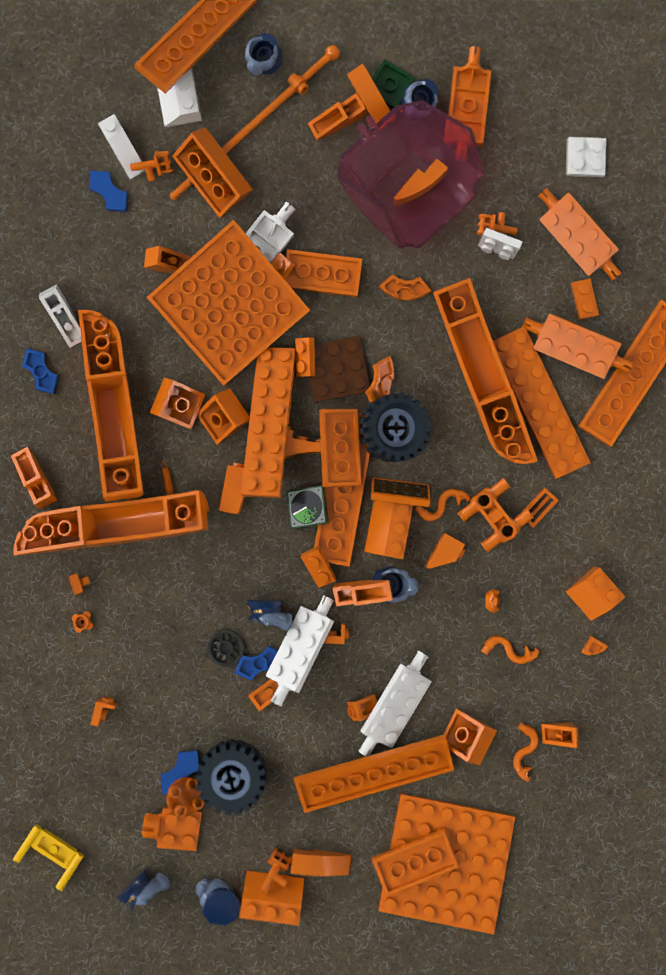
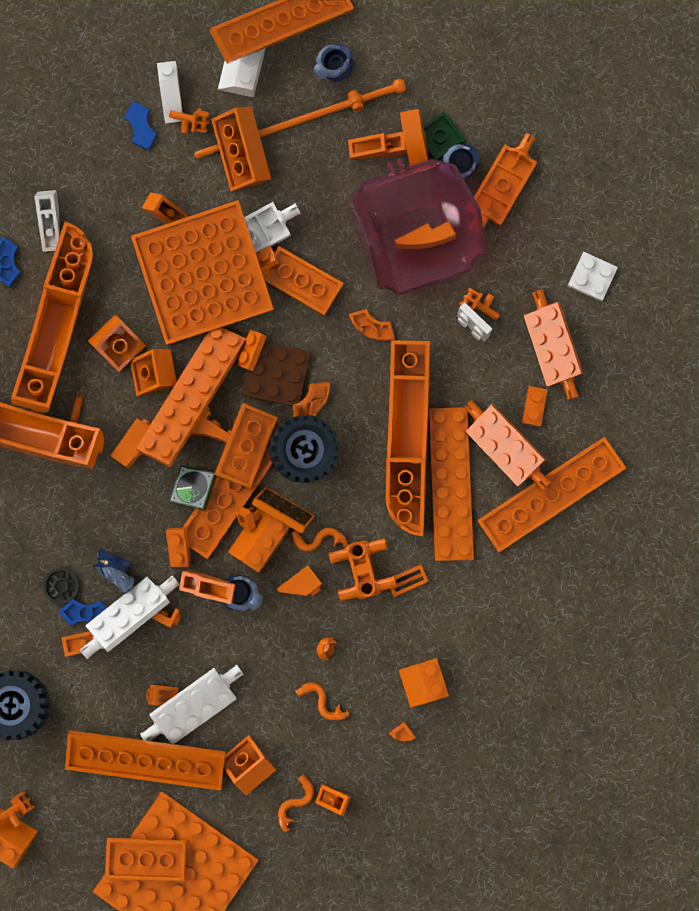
camera: 25 degrees right, 5 degrees down
(320, 863) = (58, 822): orange slope -> none
(369, 513) = (247, 517): none -> orange tile

